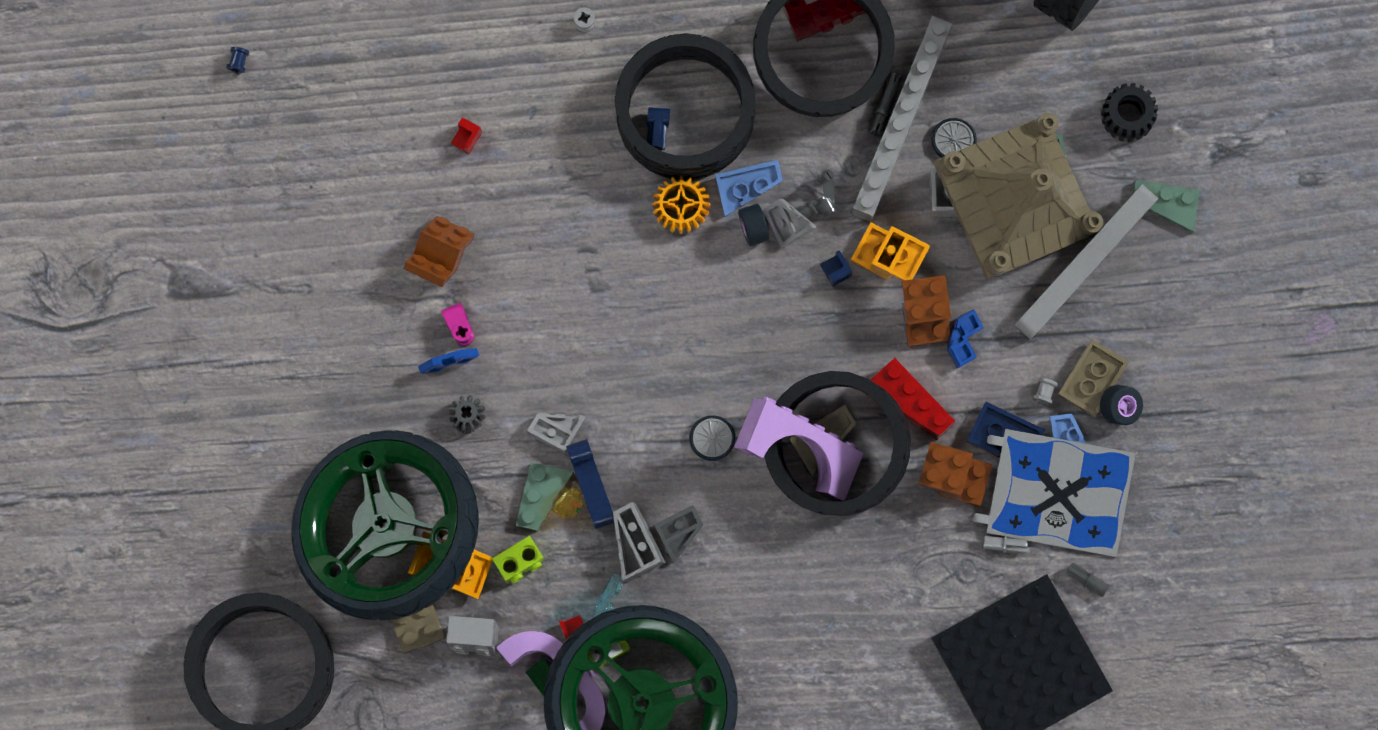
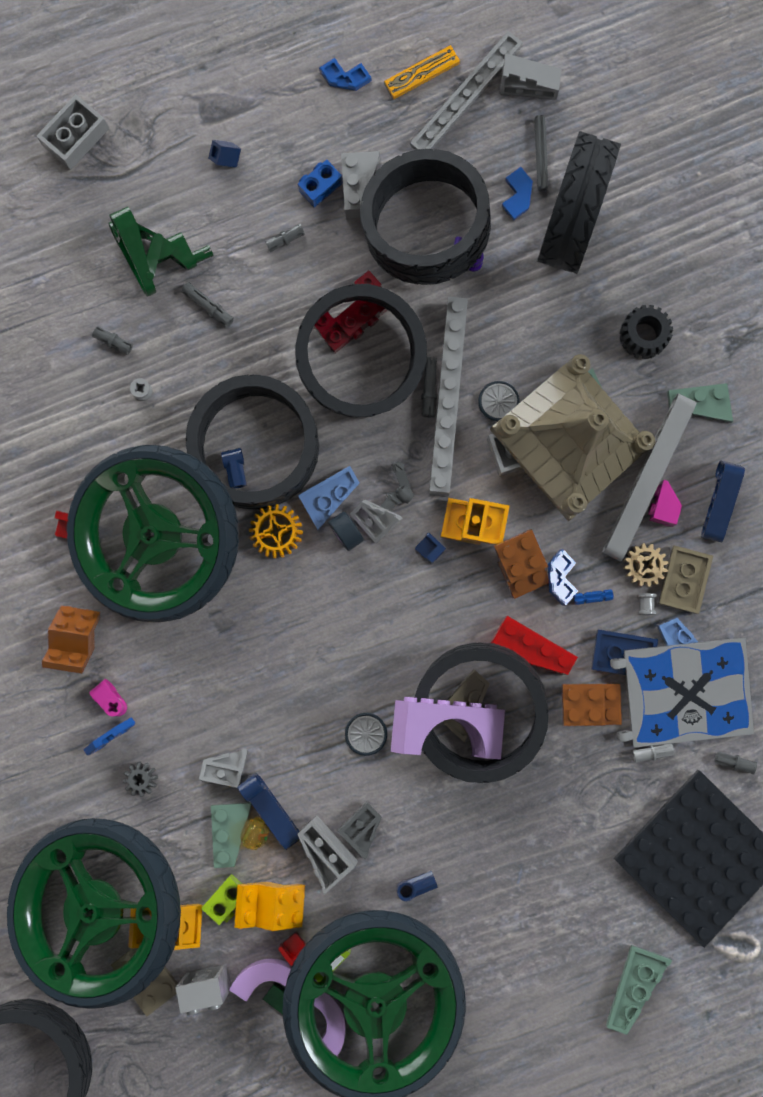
camera: 15 degrees left, 5 degrees up
(551, 150) = (143, 520): none -> dark green wheel
(562, 577) = (269, 906): none -> light orange bracket
(611, 589) = (315, 920): clear light blue plate -> none
(720, 604) = (419, 885): none -> dark blue piece
(991, 368) = (595, 596): none -> blue axle
(1061, 358) = (652, 570): none -> tan gear
(1096, 297) = (666, 505): none -> dark pink slope
(1121, 405) = (718, 597): black wheel -> none
(1155, 309) = (723, 500): none -> dark blue beam

